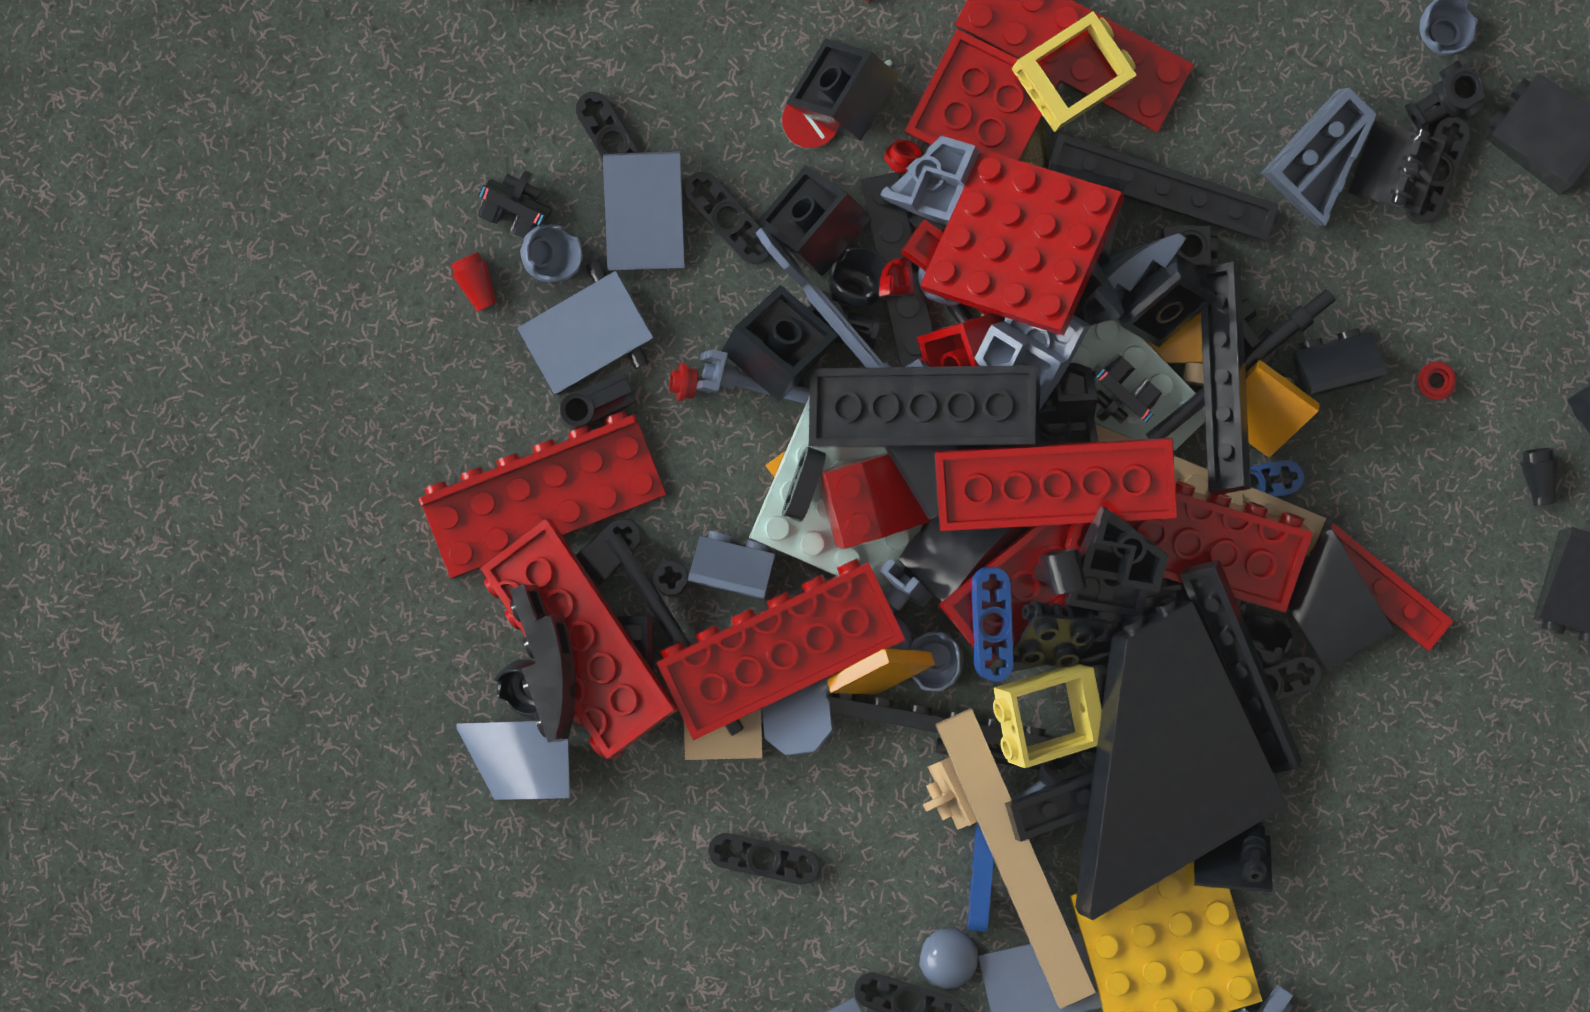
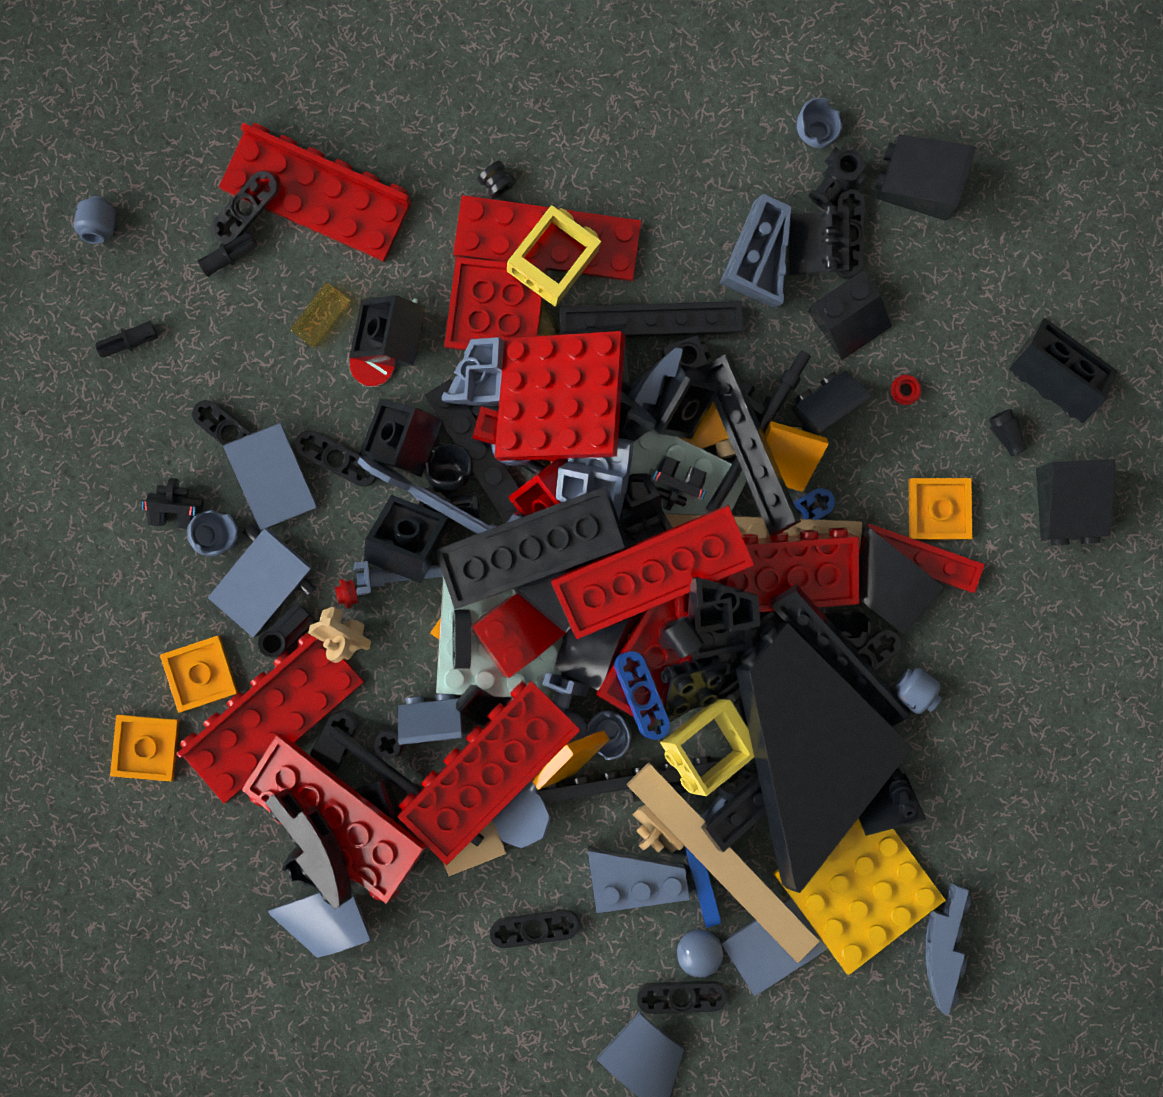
camera: 20 degrees left, 0 degrees up
(379, 478) = (144, 747): none -> light orange tile
(474, 280) = (163, 573): red cone -> none
(474, 414) = (199, 674): none -> light orange tile
(659, 431) = (339, 639): none -> tan hips
(769, 39) = (320, 315): none -> clear yellow tile
(793, 567) = (477, 704): none -> black tile
(897, 278) = (477, 458): red tile -> none
(901, 155) = (447, 365): red plate -> none
(901, 843) = (634, 881): none -> sand blue wedge
(1320, 742) = (918, 690): none -> sand blue head
(1403, 268) = (851, 315): none -> black slope
(1426, 537) = (940, 508): none -> light orange tile

